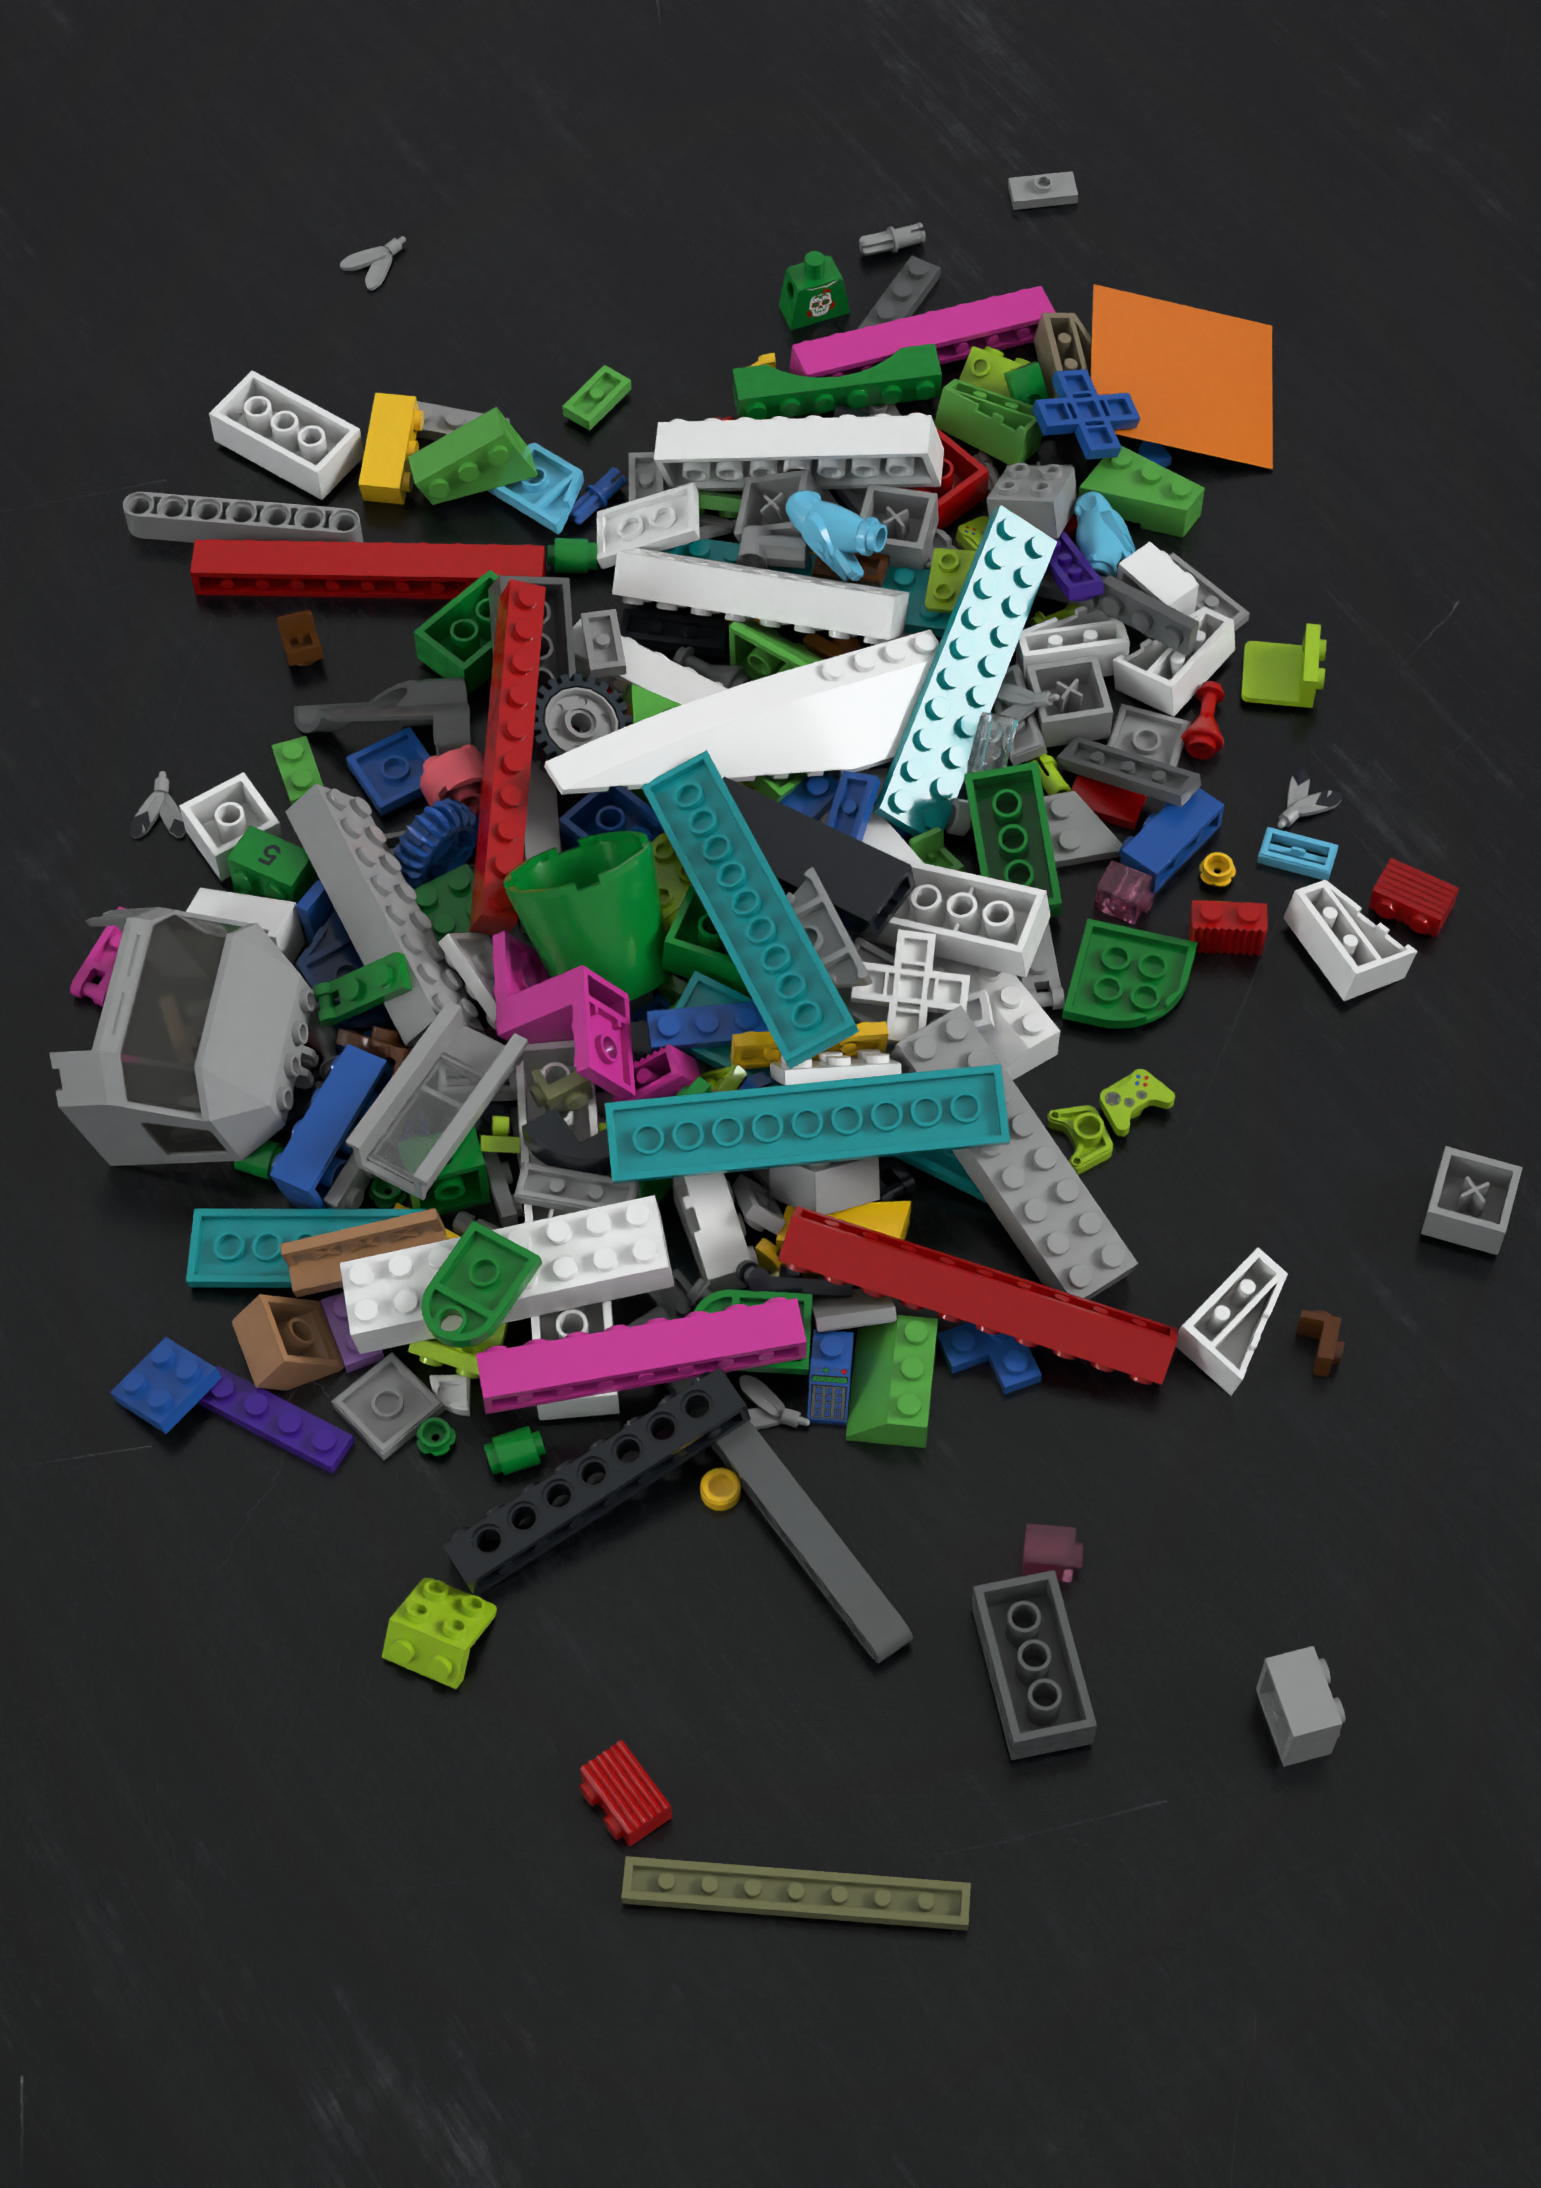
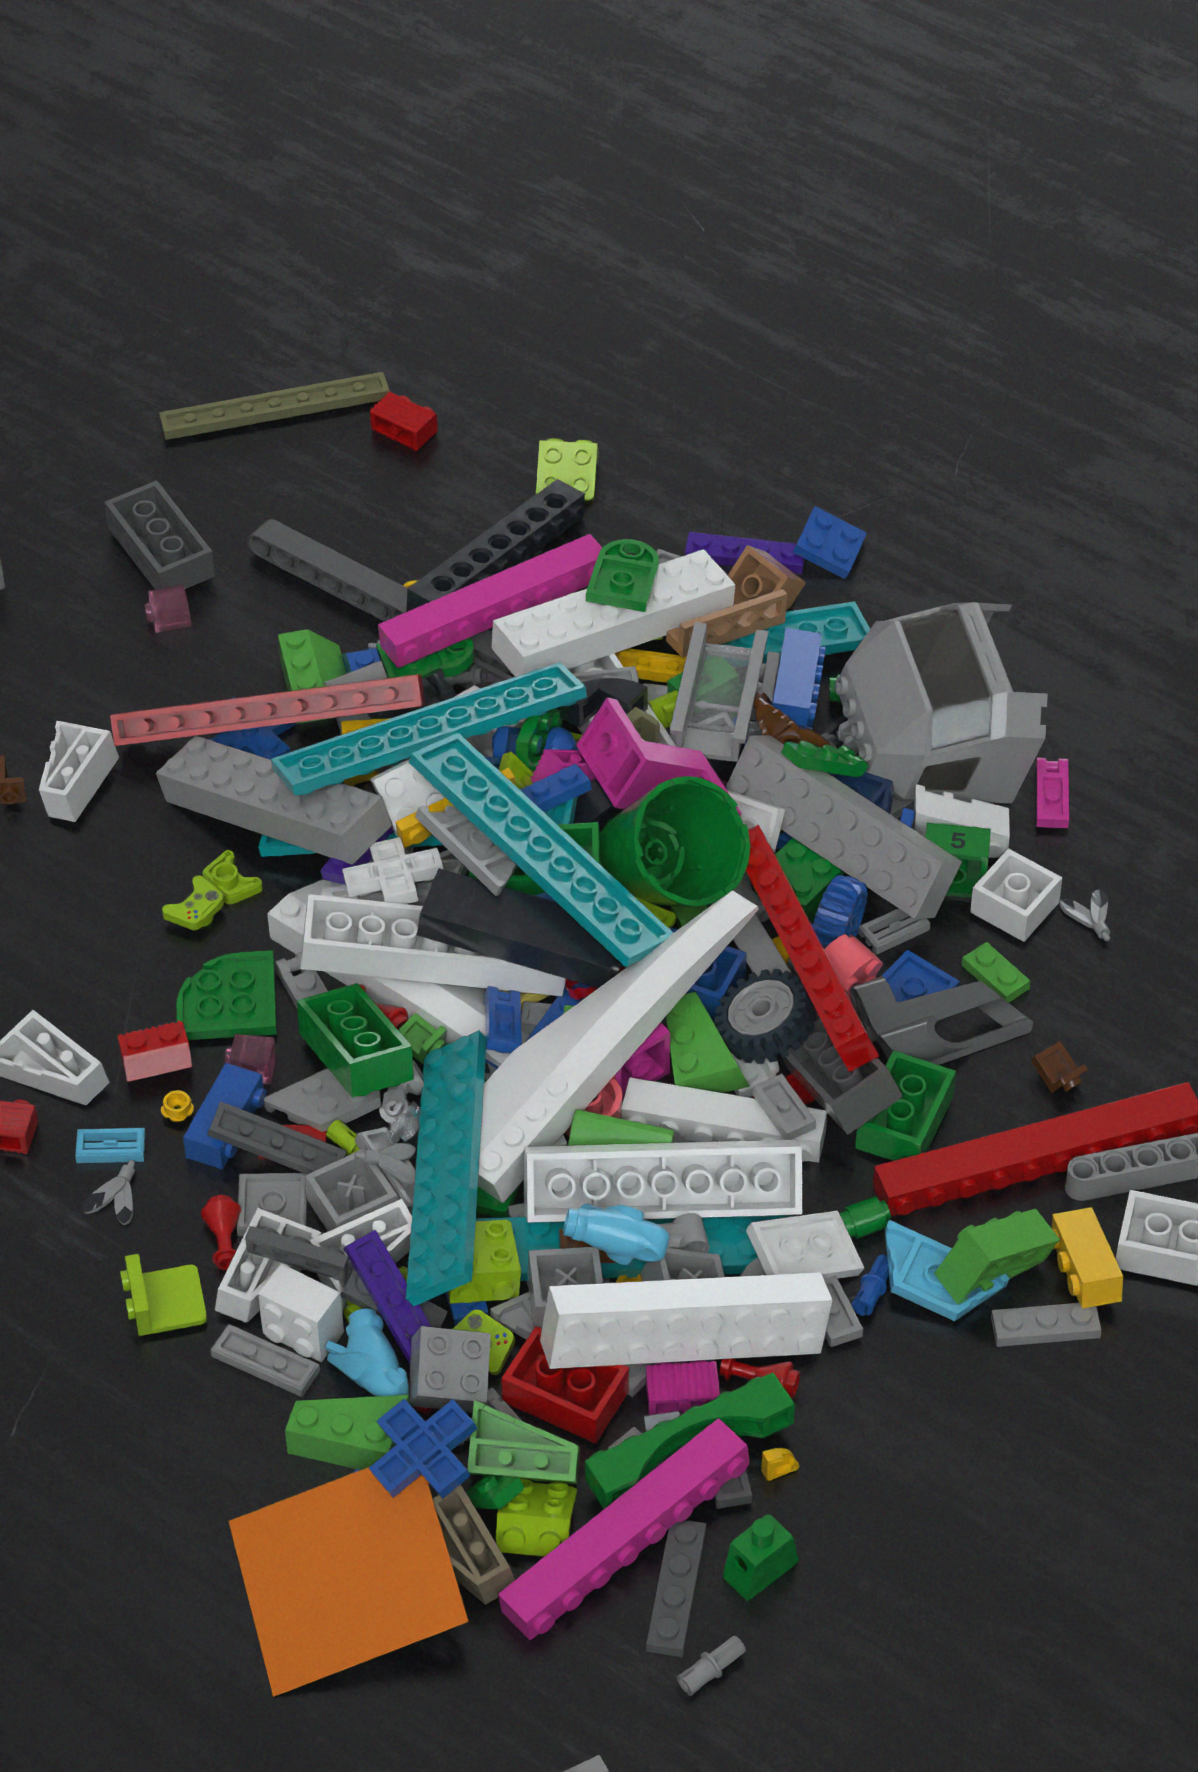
camera: 160 degrees right, 10 degrees down
(596, 397) = (925, 1386): bright green plate -> none

